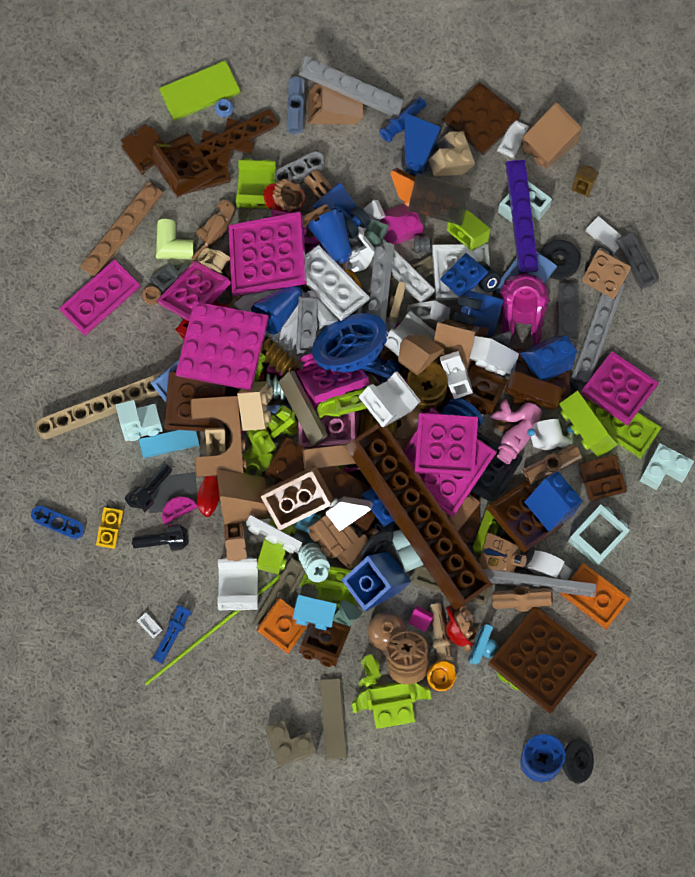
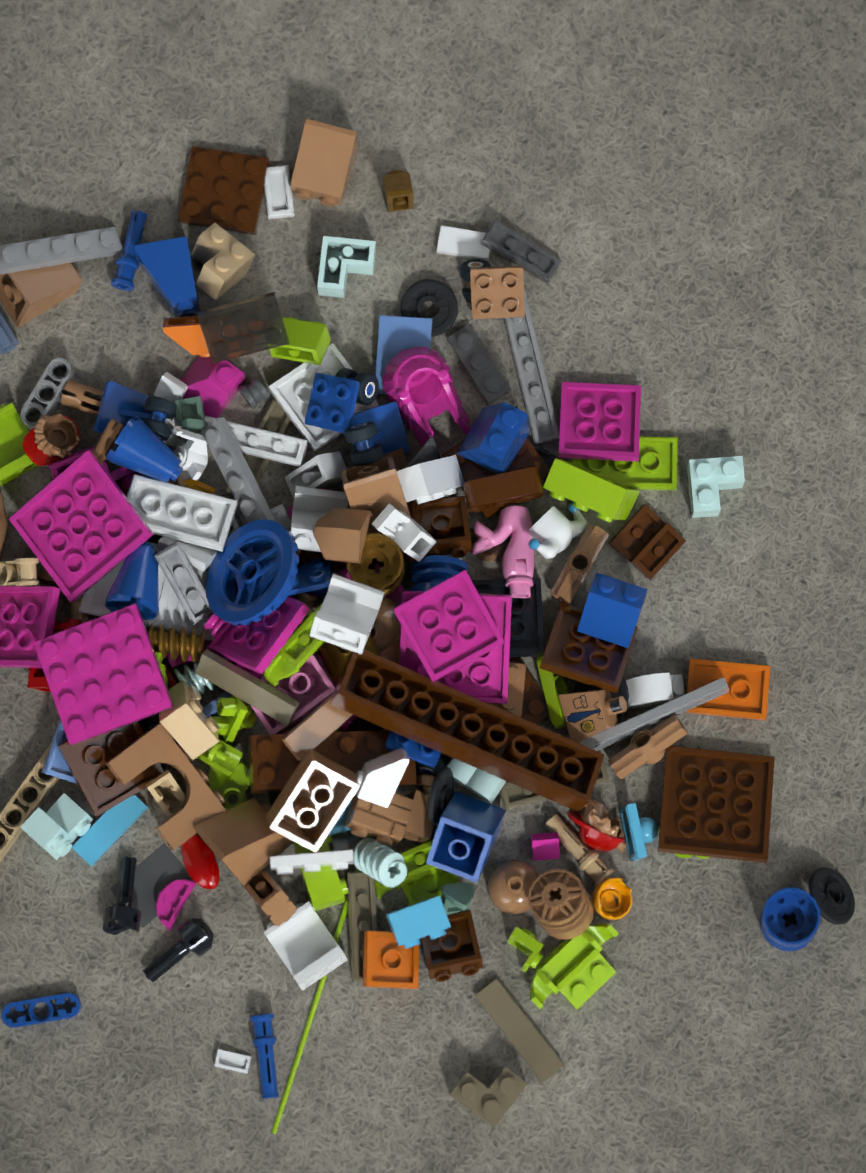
camera: 30 degrees left, 5 degrees up
(109, 528) = (107, 976): yellow slope -> none
(396, 301) = (270, 484): tan plate -> none
(521, 216) = (353, 285): dark purple plate -> none
(587, 550) = (685, 640): light aqua window -> none

